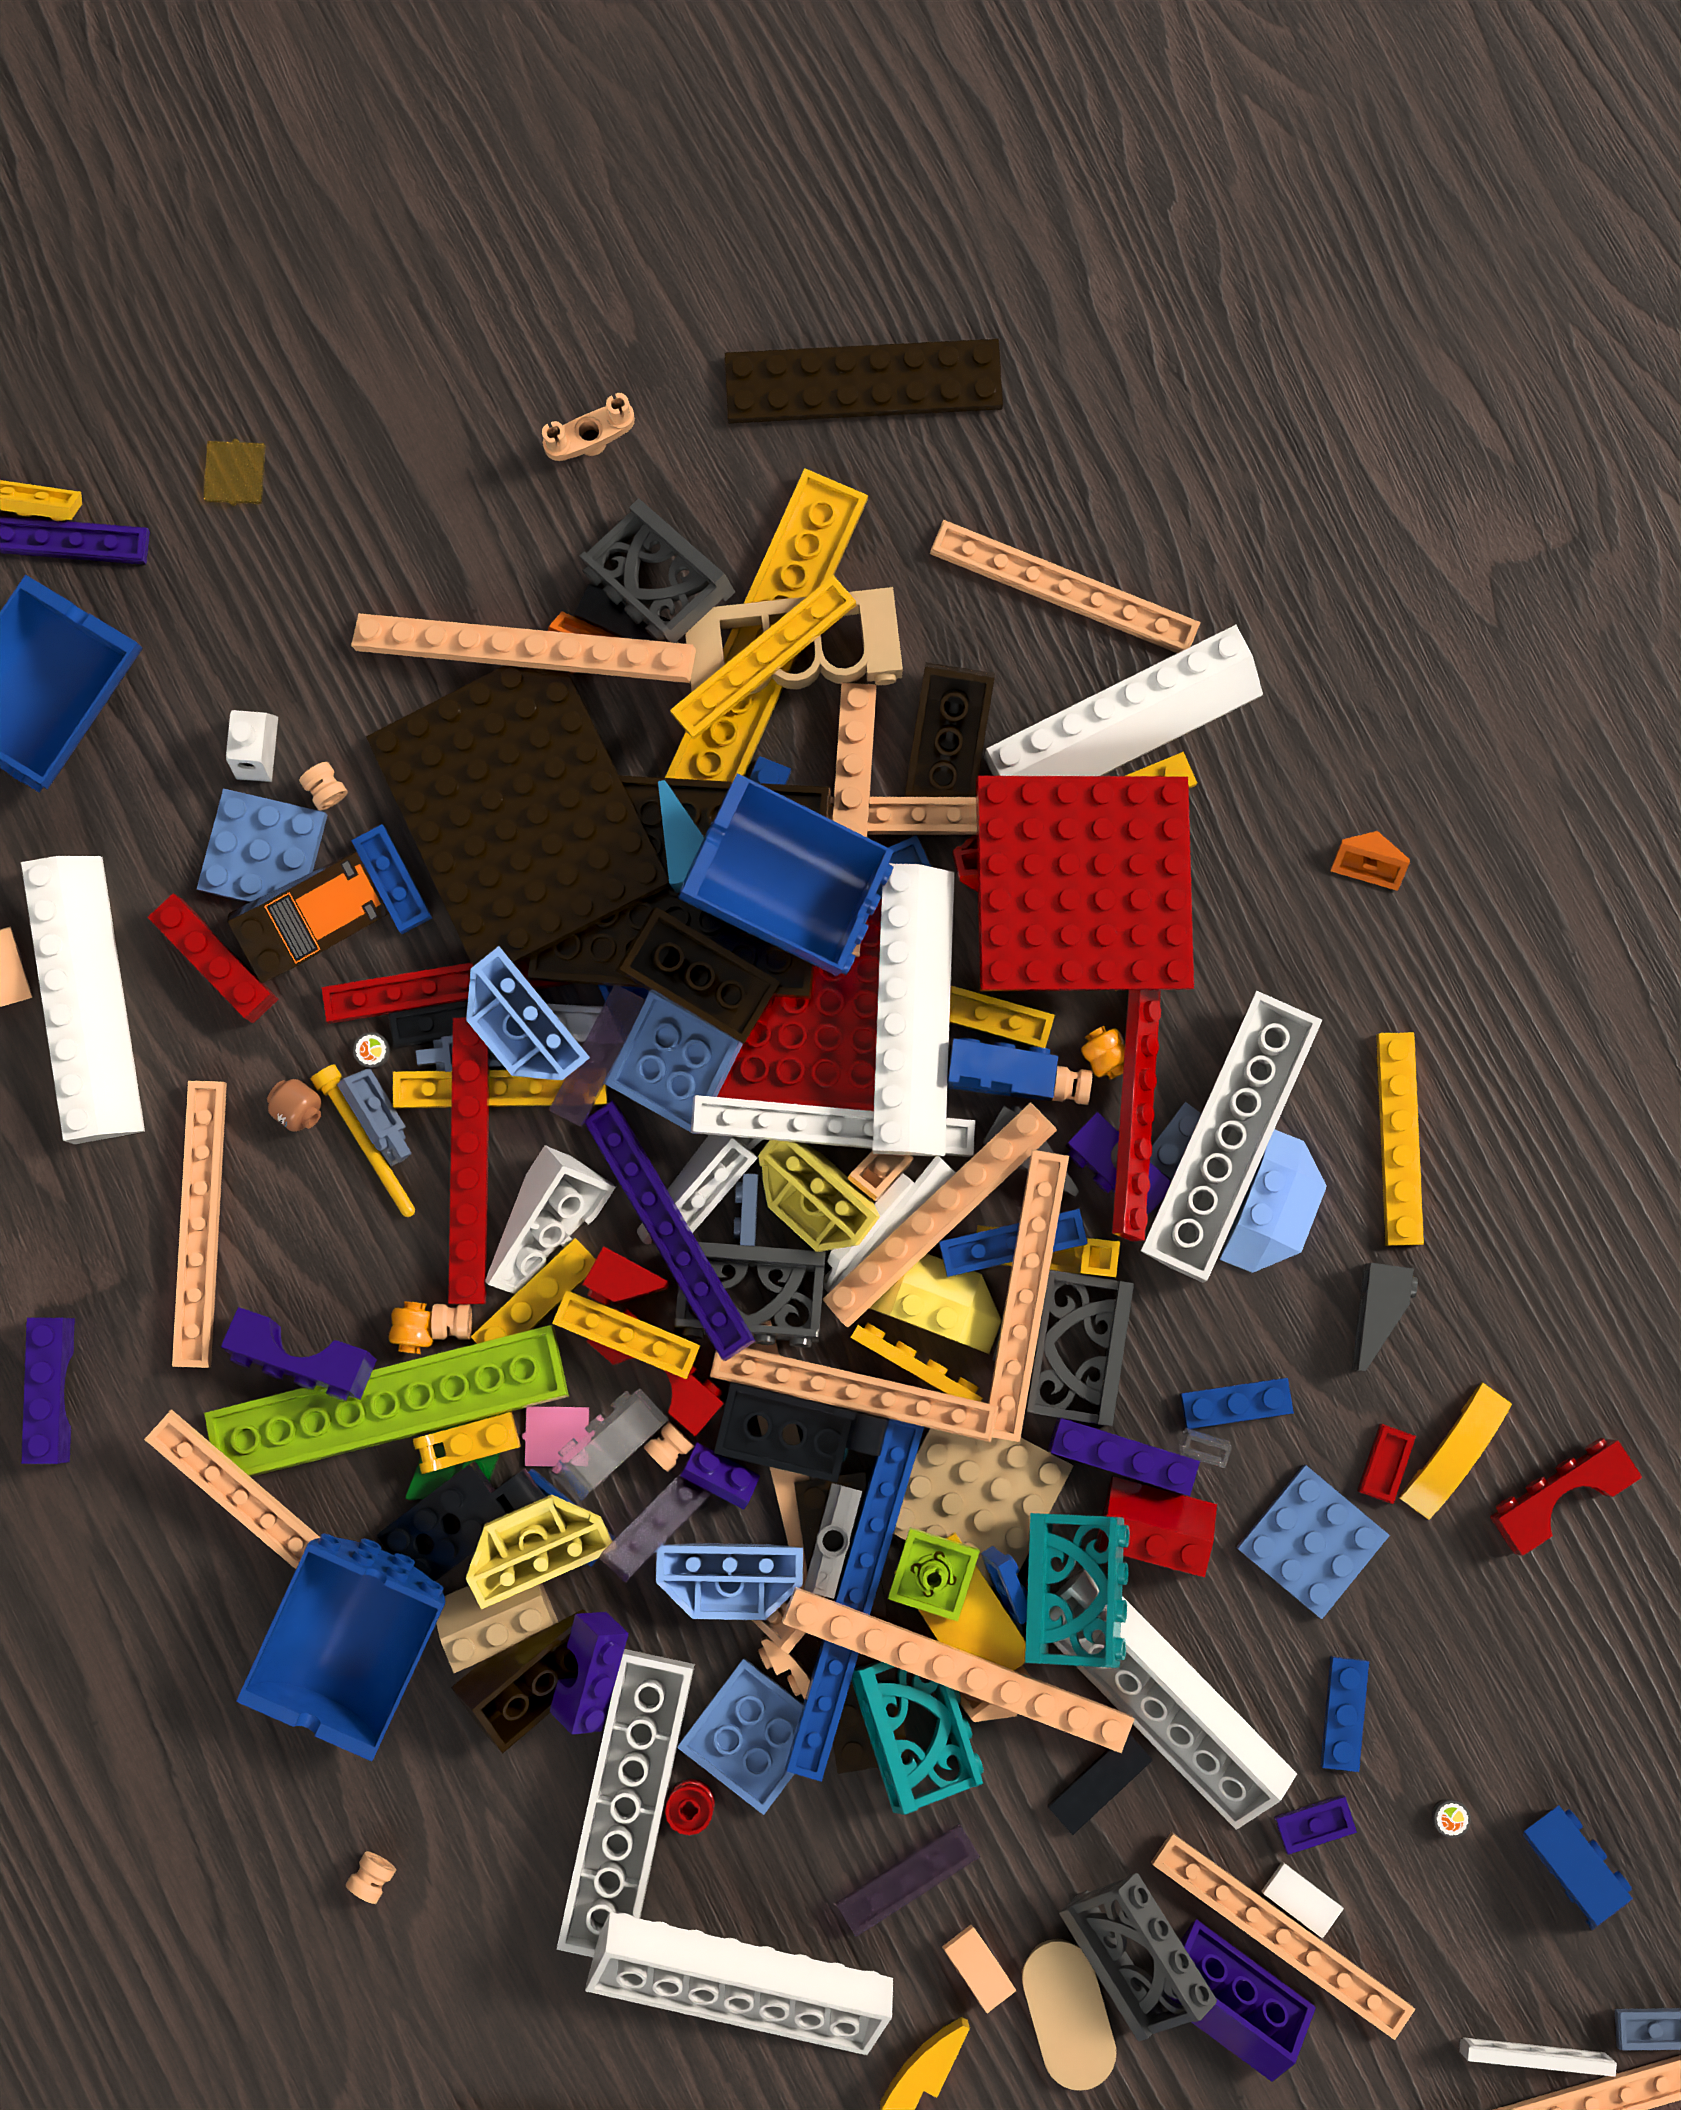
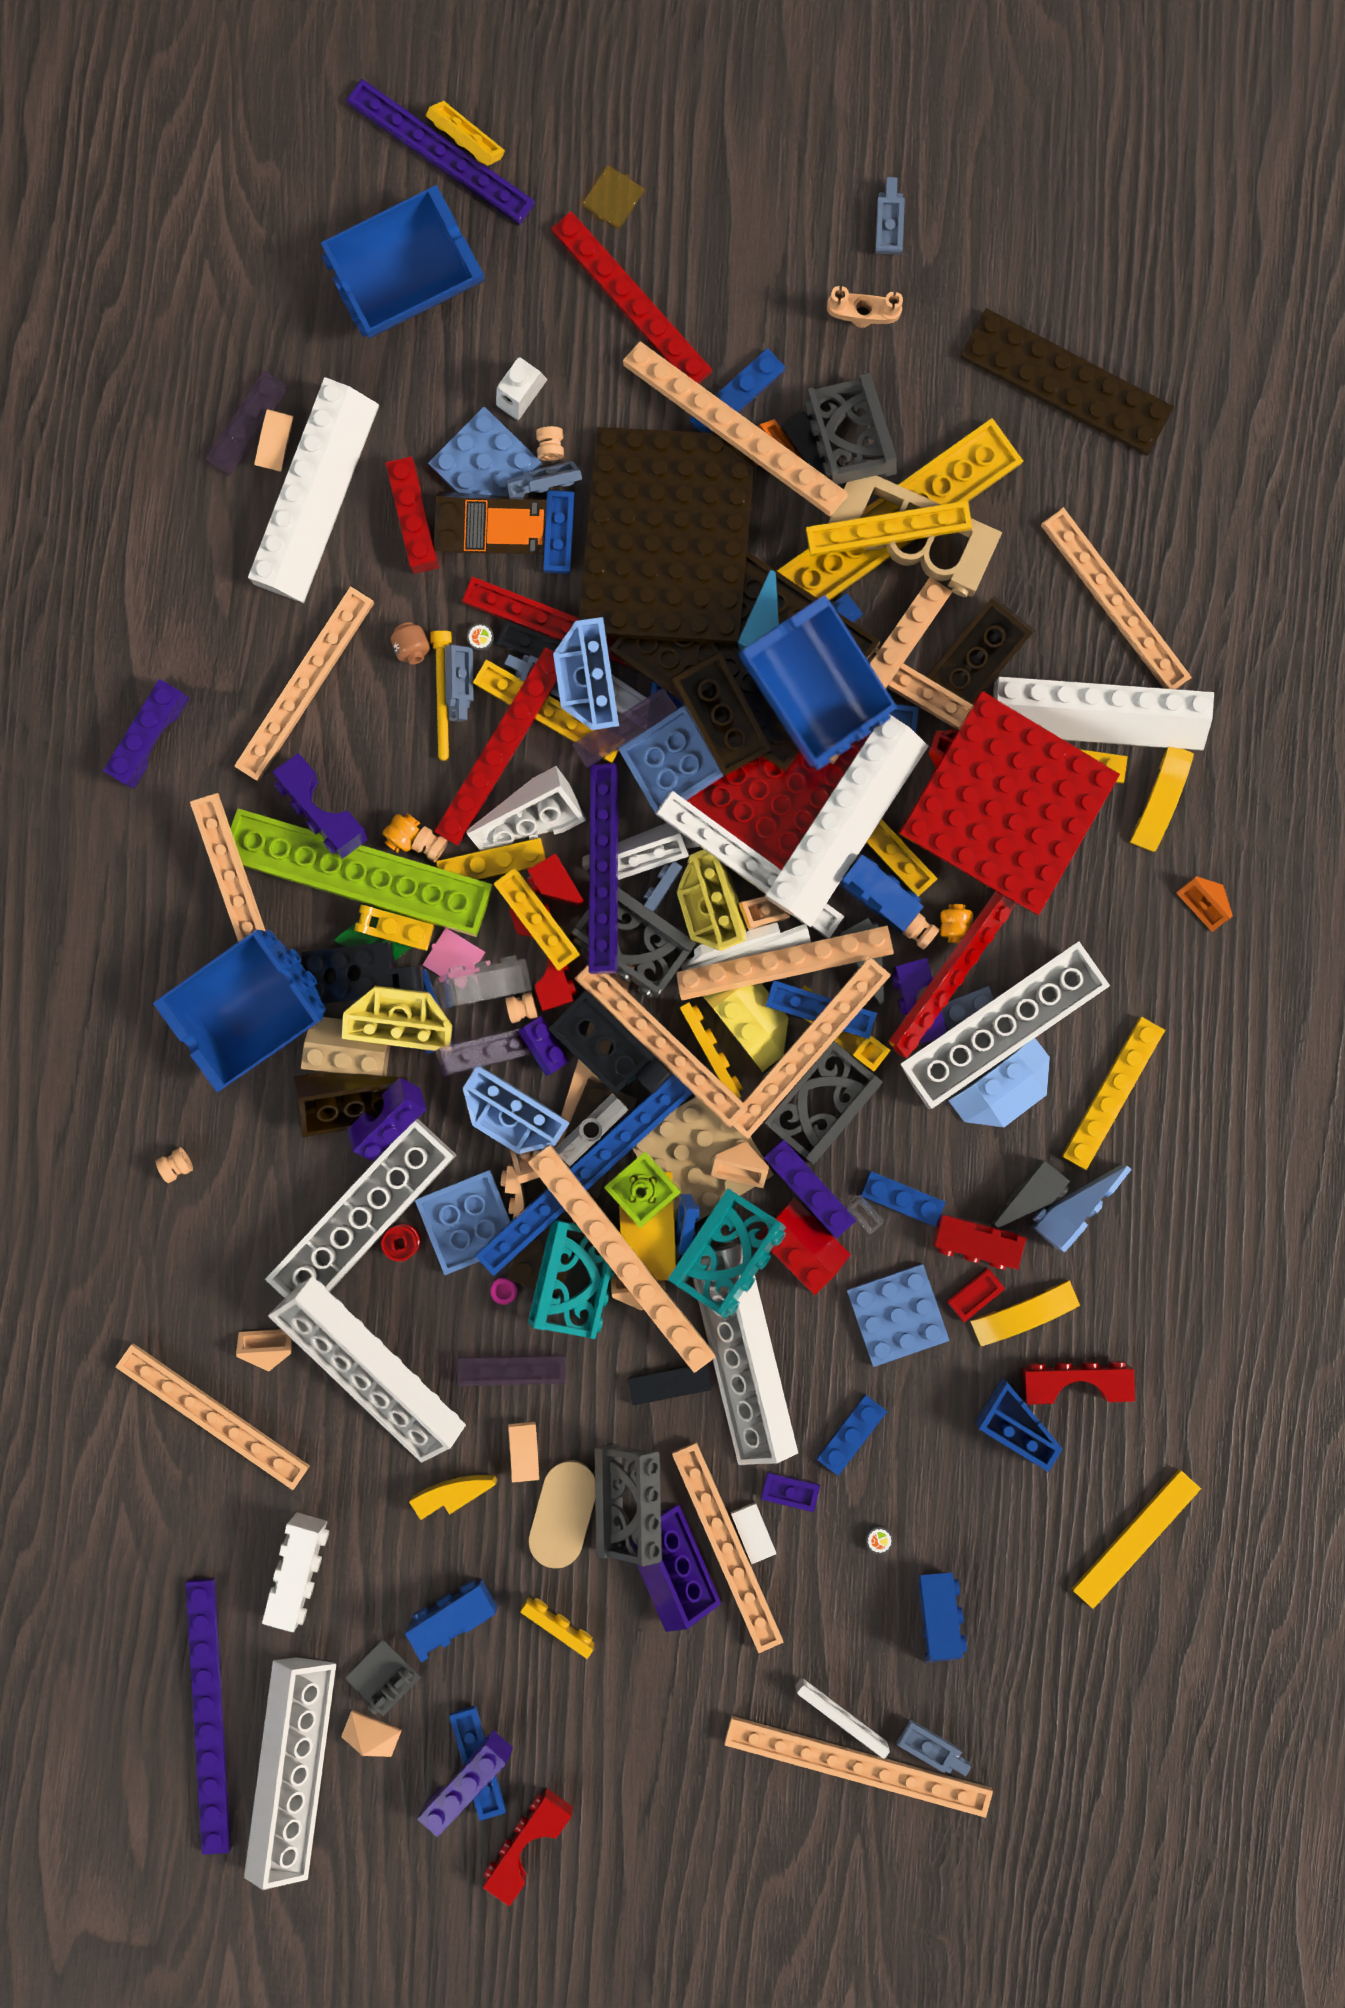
camera: 25 degrees right, 5 degrees up
(318, 572) = (630, 298): none -> red plate
(338, 830) = (543, 478): none -> sand blue hinge
(508, 591) = (747, 385): none -> blue plate
(560, 319) = (890, 220): none -> sand blue hinge
(602, 2031) = (264, 1347): none -> light nougat slope
(843, 1790) = (503, 1290): none -> dark pink tile
(1030, 1478) = (740, 1165): none -> light nougat slope
(1251, 775) = (1163, 798): none -> yellow slope
(1353, 1401) = (978, 1242): none -> red wedge
(1434, 1317) = (1064, 1219): none -> light blue wedge
(1528, 1590) = (1015, 1426): none -> blue wedge

